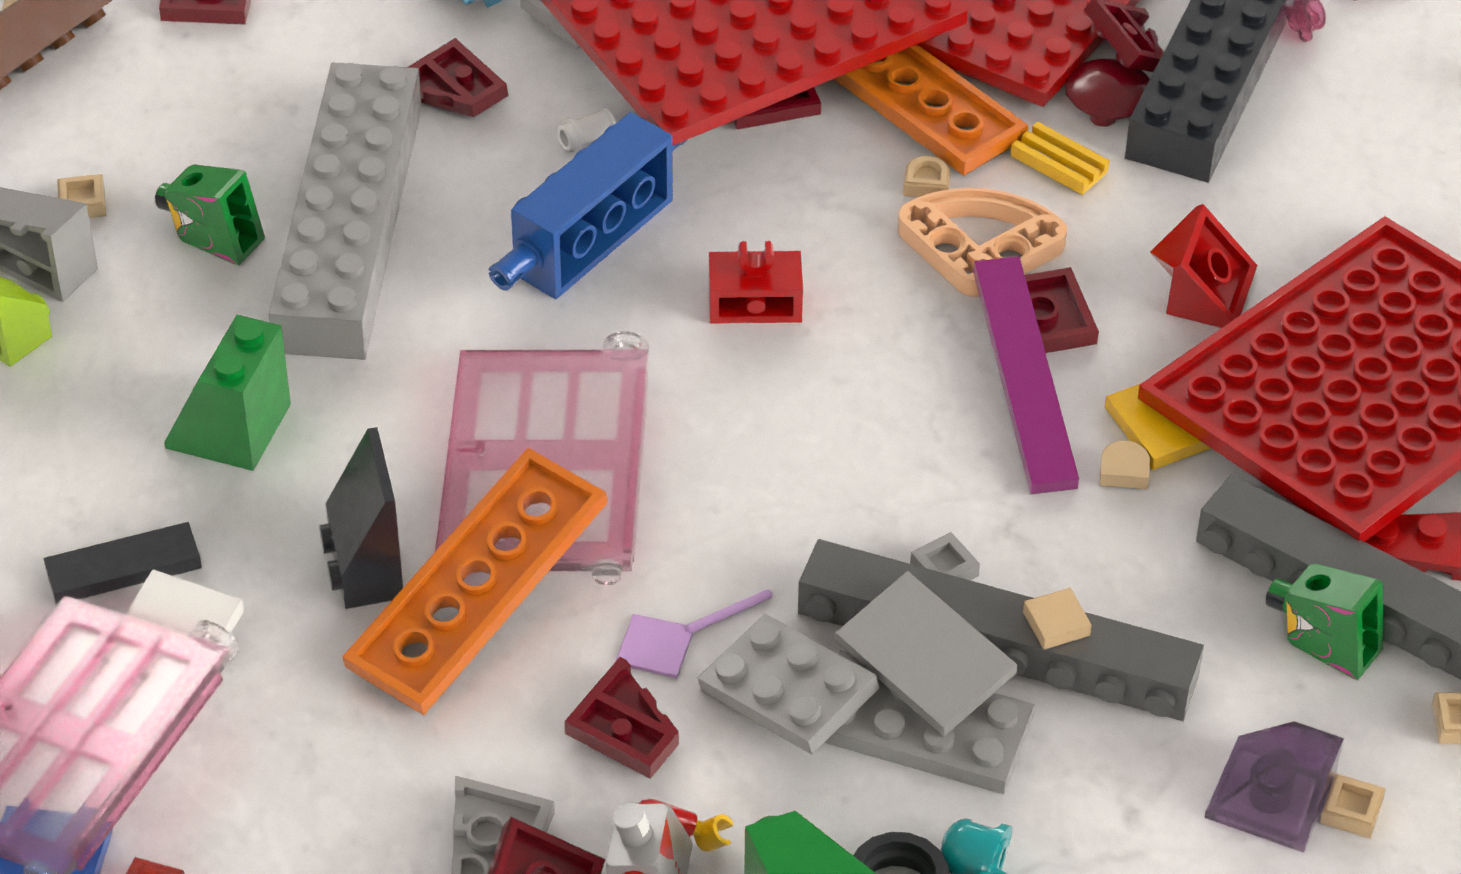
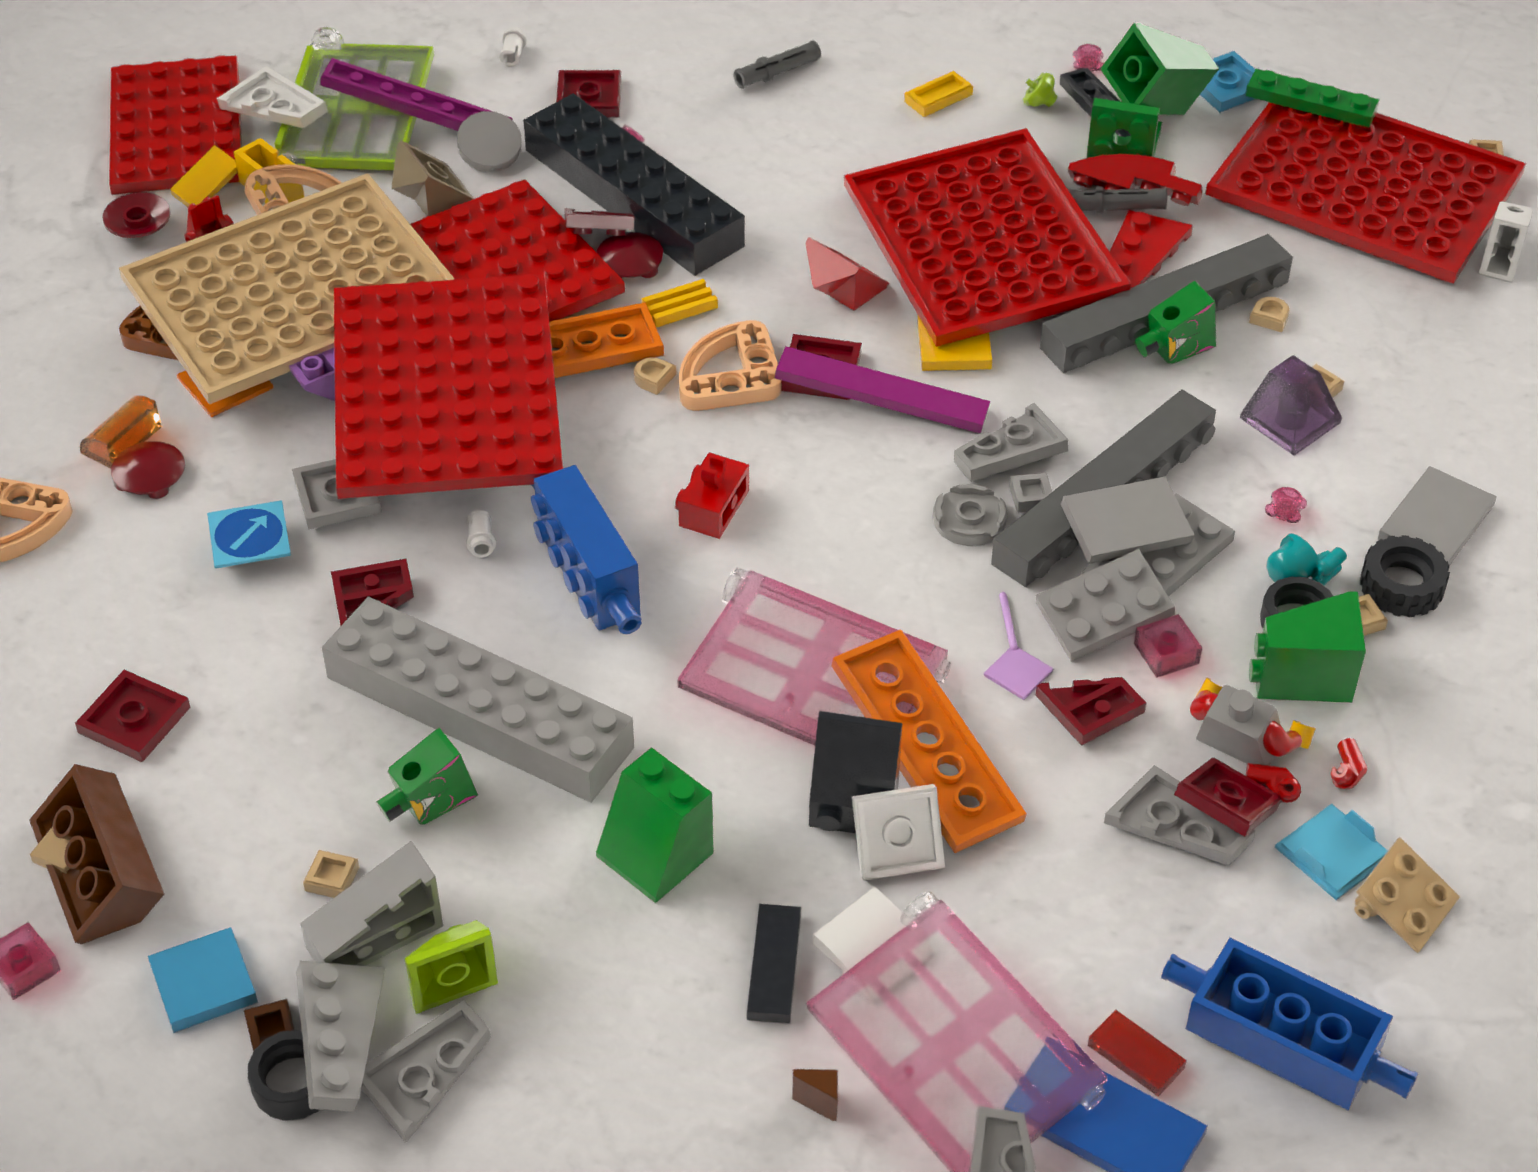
camera: 65 degrees left, 0 degrees up
(323, 593) = (898, 832): none -> white tile
(767, 768) = (1167, 645): none -> clear pink piece
(880, 520) = (969, 515): none -> light grey tile
(1027, 532) = (1012, 446): none -> light grey wing
(1057, 618) = (1133, 444): tan tile -> none
(1091, 813) = (1286, 504): none -> clear pink plate
(1125, 465) = (985, 377): tan tile -> none

